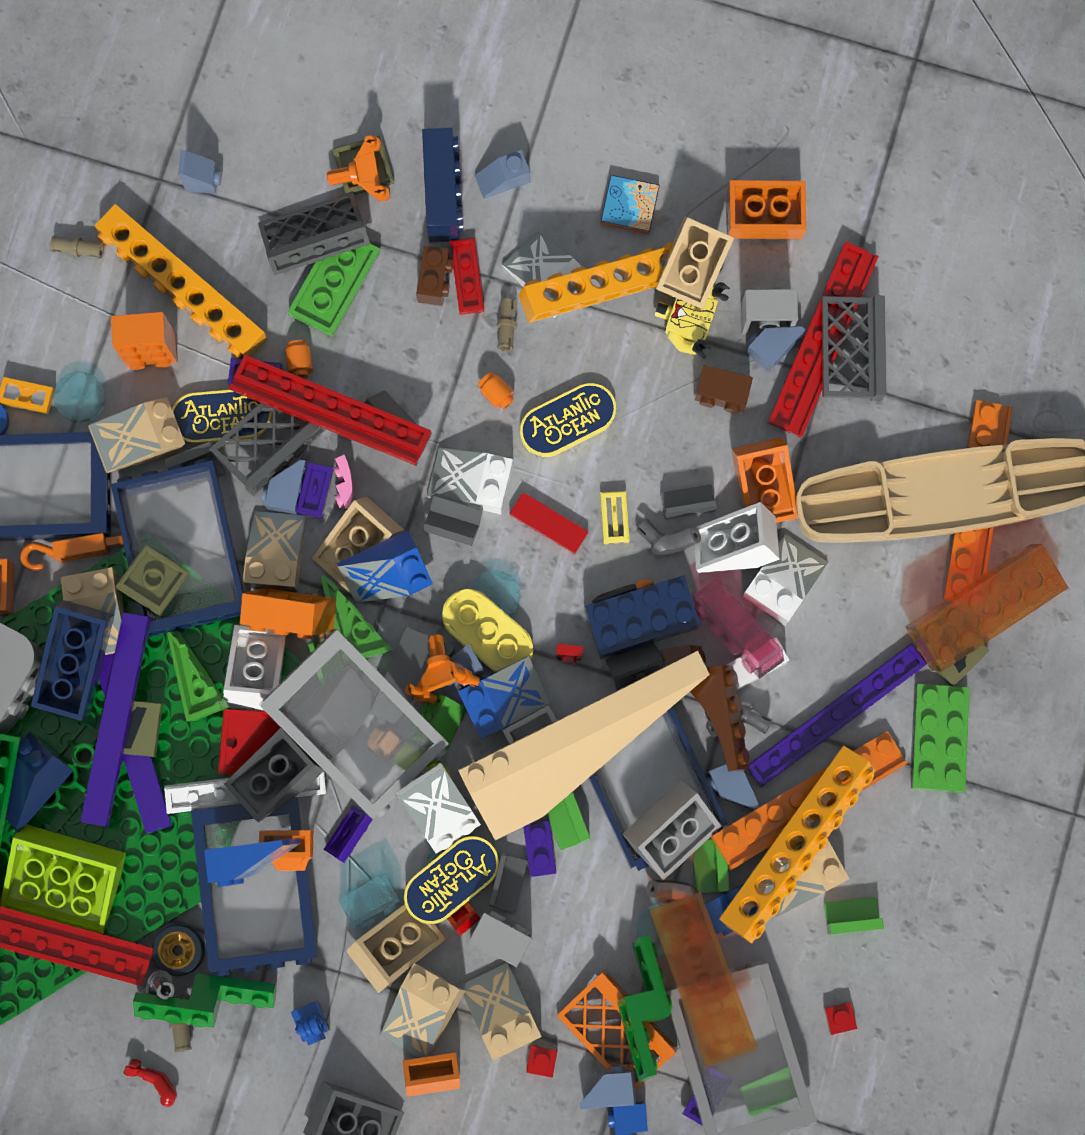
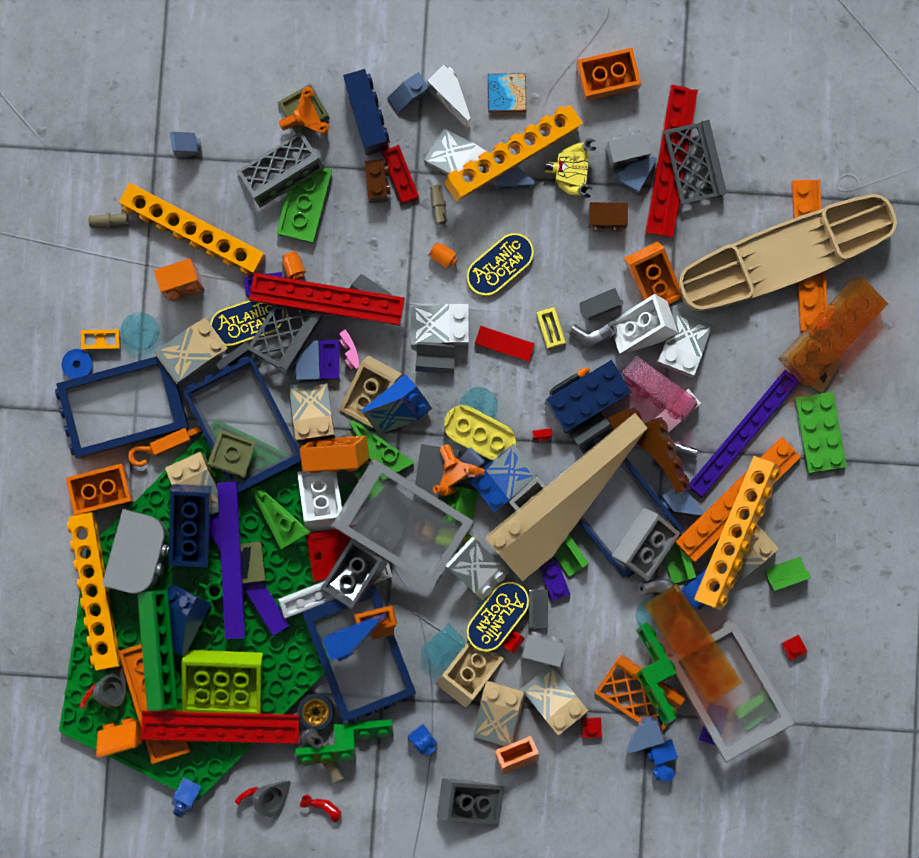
camera: 15 degrees left, 5 degrees up
(83, 1052) = (268, 798): none -> dark grey piece
(348, 834) = (416, 601): dark purple plate -> none
(551, 179) = (447, 91): none -> white slope
(611, 315) = (513, 179): none -> sand blue slope
(694, 262) = (565, 127): tan slope -> none

